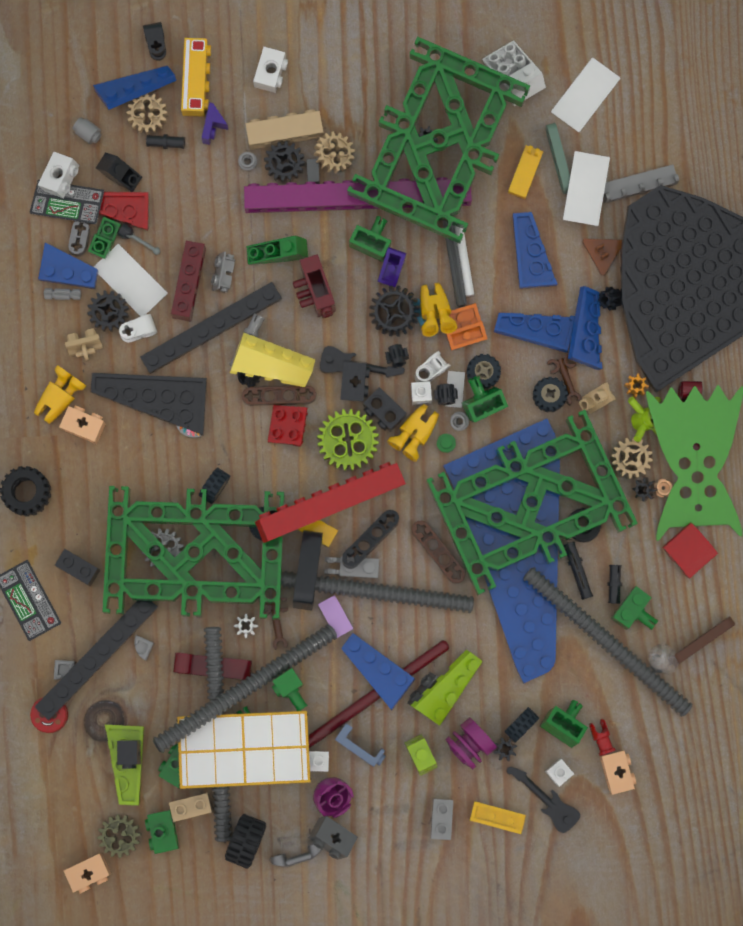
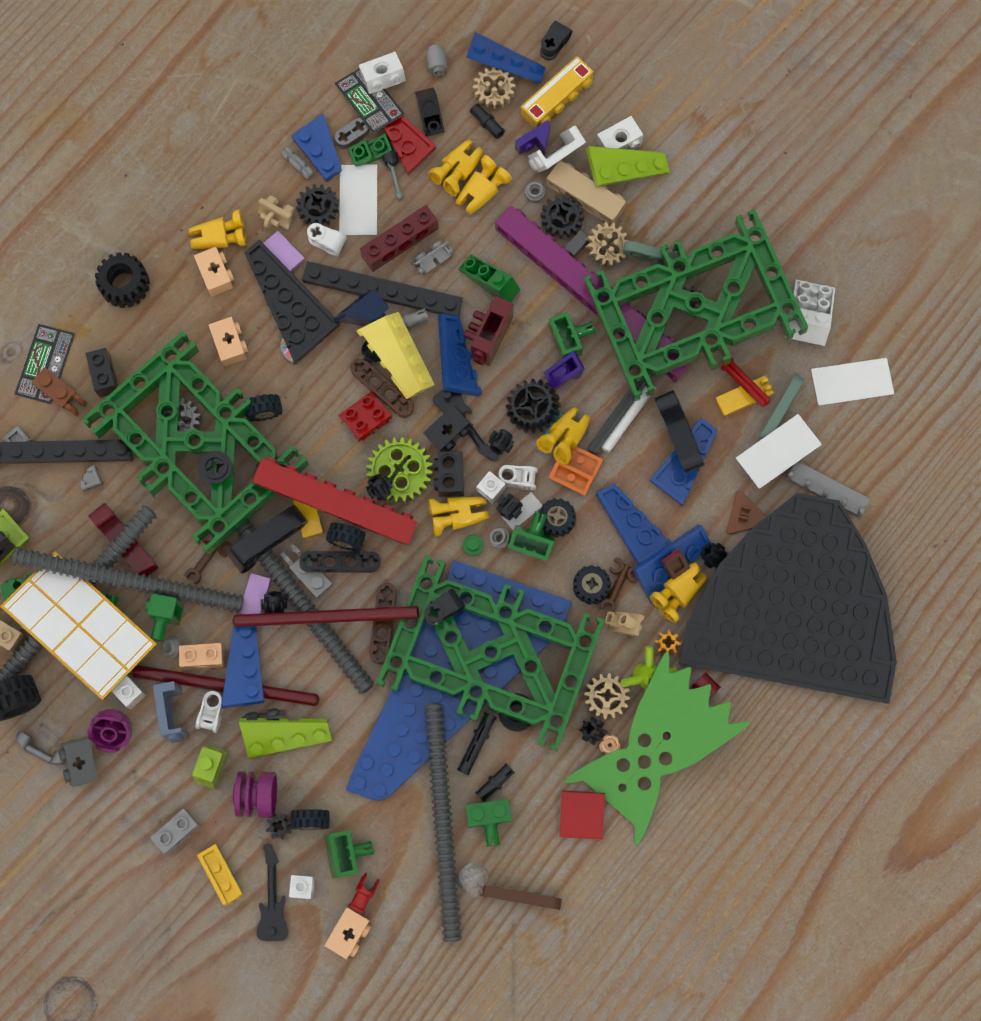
camera: 50 degrees right, 5 degrees down
(58, 609) = (57, 390): none -> dark orange hinge
(116, 364) = (284, 251): none -> lavender tile
(150, 471) = (225, 330): none -> light nougat brick
(175, 191) = (459, 165): none -> yellow piece
(208, 193) = (480, 187): none -> yellow piece
(215, 352) = (363, 310): none -> dark blue slope
(226, 547) = (206, 464): none -> black gear
(240, 626) = (176, 533): white gear -> none
(243, 106) = (572, 139): none -> white panel
(291, 87) = (623, 165): none -> lime wing
(315, 703) = (171, 647): none -> light grey plate
(317, 334) = (455, 358): none -> blue wing
(342, 690) = (202, 656): none -> light nougat brick
(349, 463) = (379, 487): none -> black gear
(355, 609) = (273, 602): none -> black gear
(358, 518) = (345, 536): none -> black wheel
(369, 132) = (647, 253): none -> sand green beam
(386, 721) = (210, 713): none -> white piece
(400, 584) = (326, 616): none -> dark red piece
(475, 499) = (446, 606): none -> black piece
(511, 236) = (679, 431): none -> black beam
(522, 162) = (746, 383): none -> red axle
(593, 328) = (675, 564): none -> reddish brown plate
(611, 341) = (682, 590): none -> yellow piece

